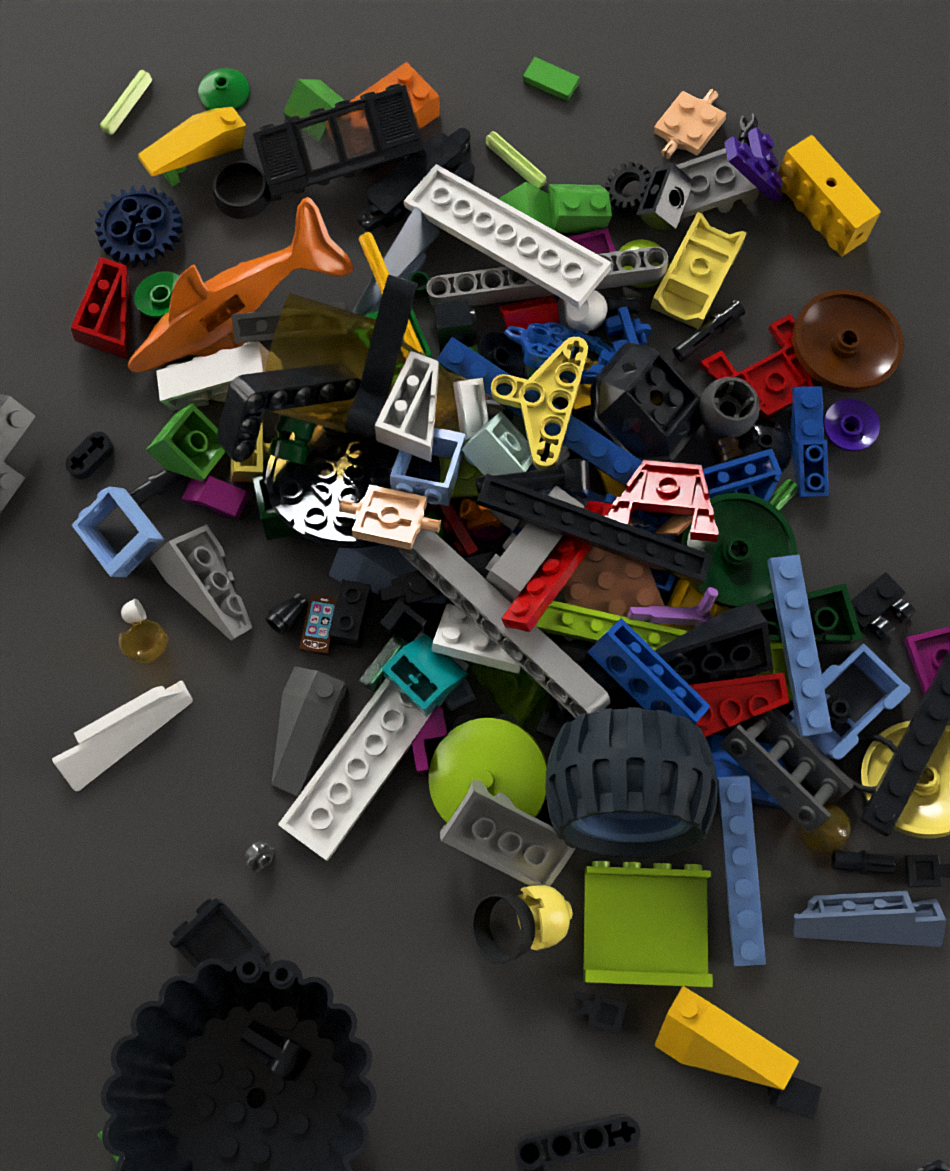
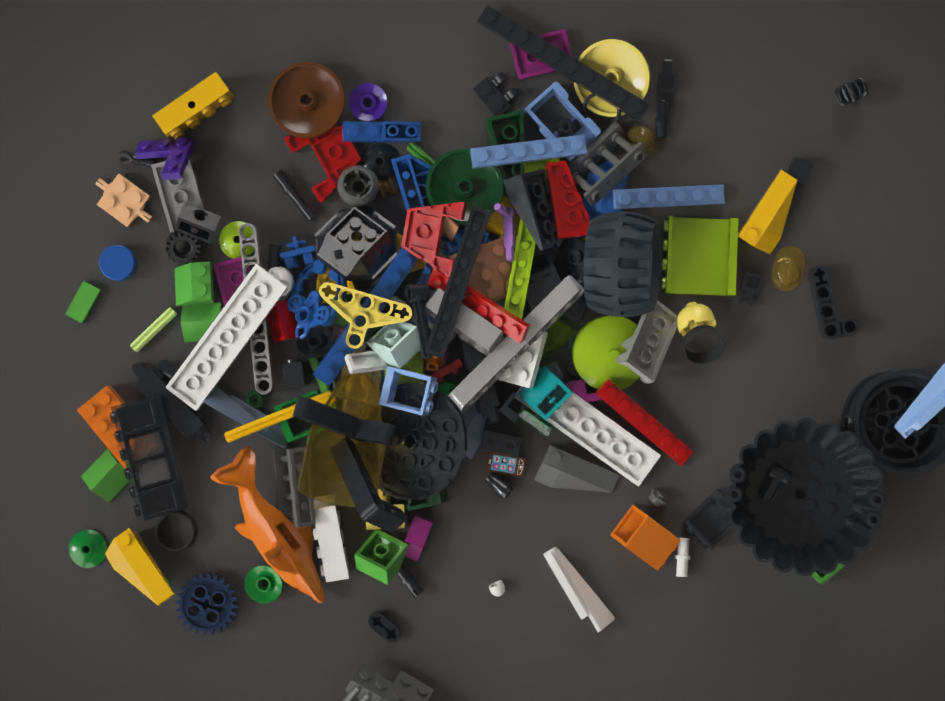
camera: 90 degrees left, 15 degrees up
(105, 310) = (277, 621): red wedge -> none
(126, 102) = (99, 621): yellowish green axle -> none
(135, 551) = (450, 614): light blue window -> none
(143, 641) = (518, 579): clear yellow hair -> none
(162, 897) = (682, 557): none -> white pin
(195, 835) = (645, 537): none -> orange slope
(198, 573) = (471, 546): light grey wedge -> none
(287, 448) = (393, 482): dark green wheel -> none
(377, 833) = (644, 422): none -> red plate
(389, 517) = (449, 415): light nougat plate -> none
(411, 407) = (378, 401): white wedge -> none
(605, 115) = (118, 263): none -> blue head
(631, 1077) = (788, 268): none -> clear yellow piece
(646, 674) = (556, 251): blue brick -> none
(697, 272) = (249, 200): light yellow piece -> none
(872, 919) = (695, 117): sand blue wedge -> none

